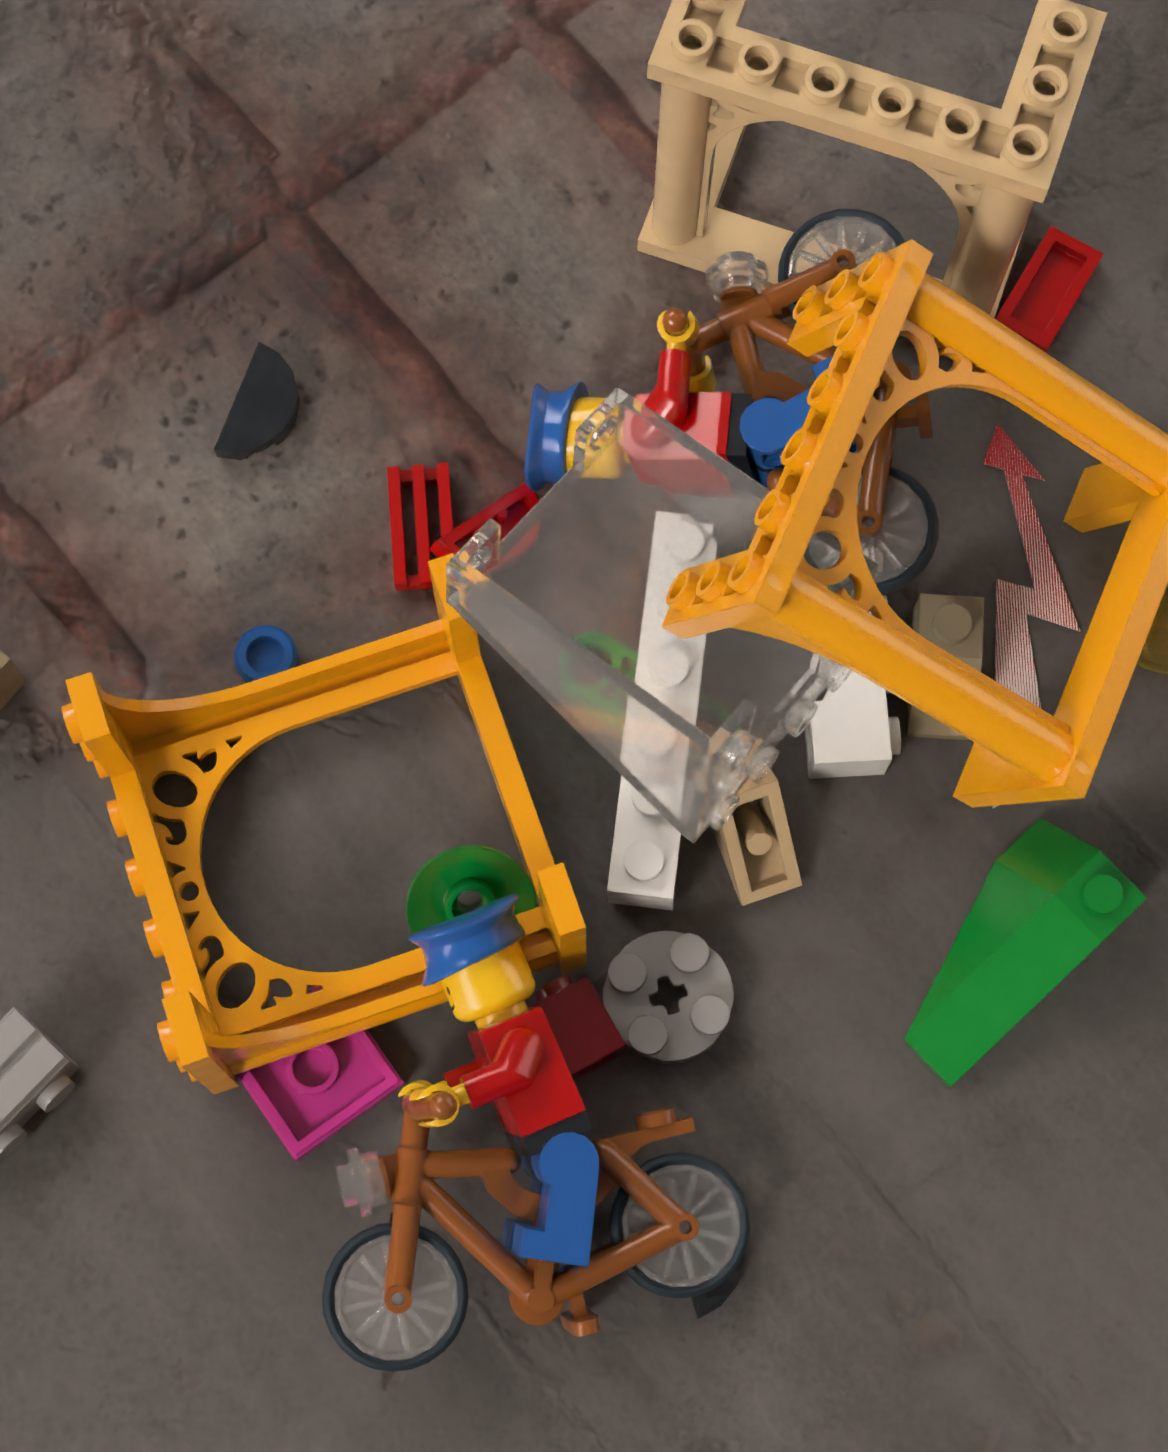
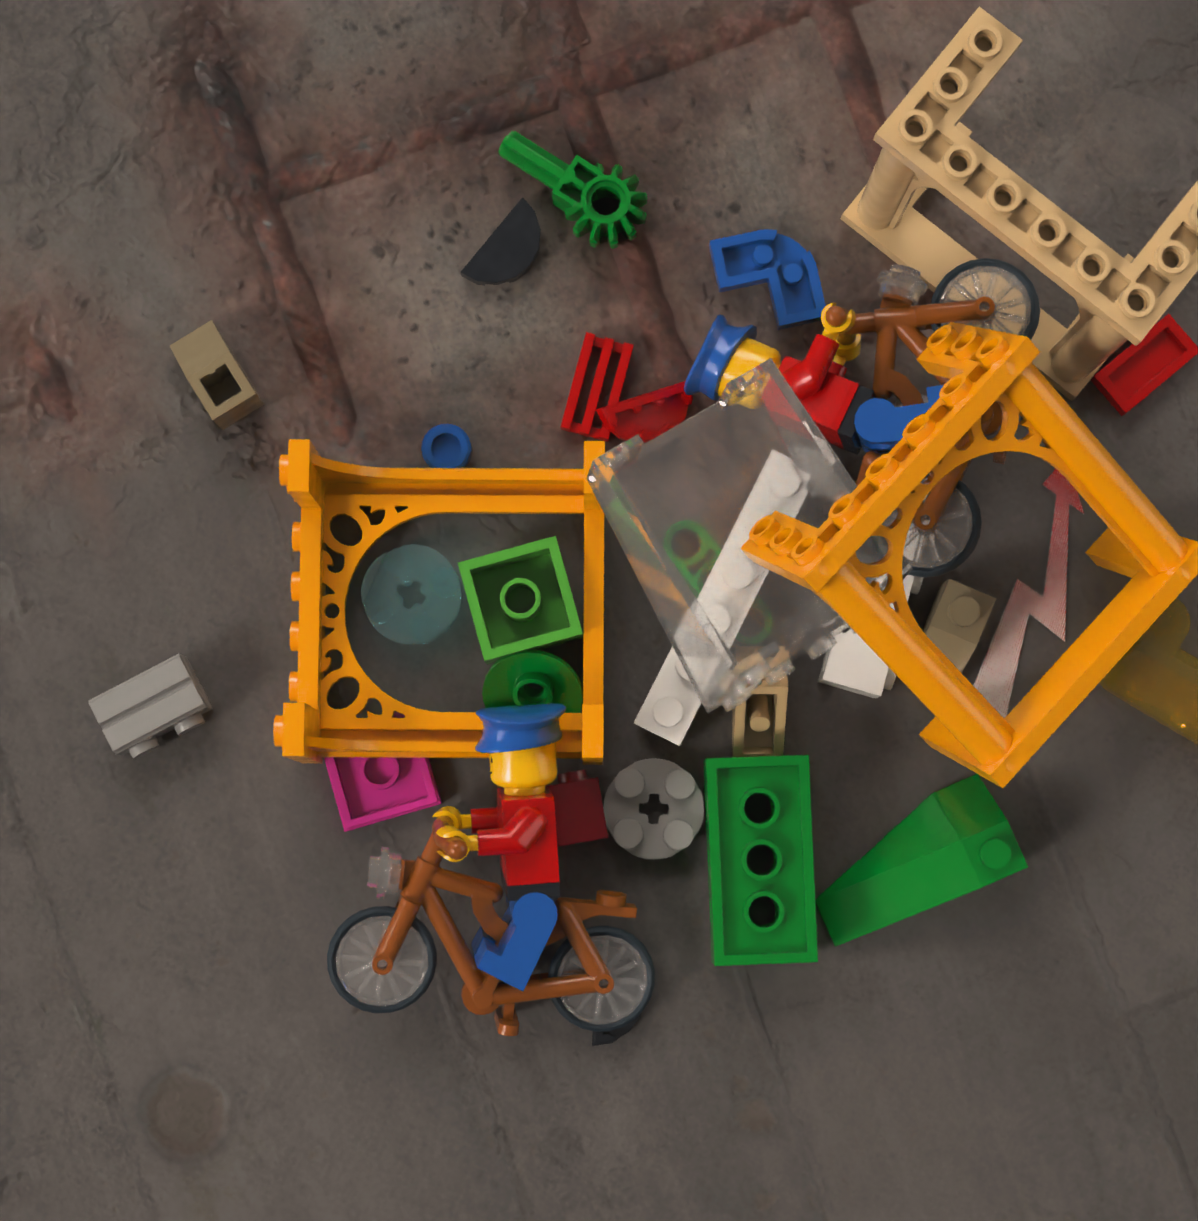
camera: 20 degrees right, 10 degrees up
(258, 813) = (401, 568): none -> clear light blue plate
(323, 309) = (579, 187): none -> green gear
(417, 794) = (520, 599): none -> bright green brick
(582, 316) = (774, 260): none -> blue plate
(845, 969) = (789, 880): none -> green brick

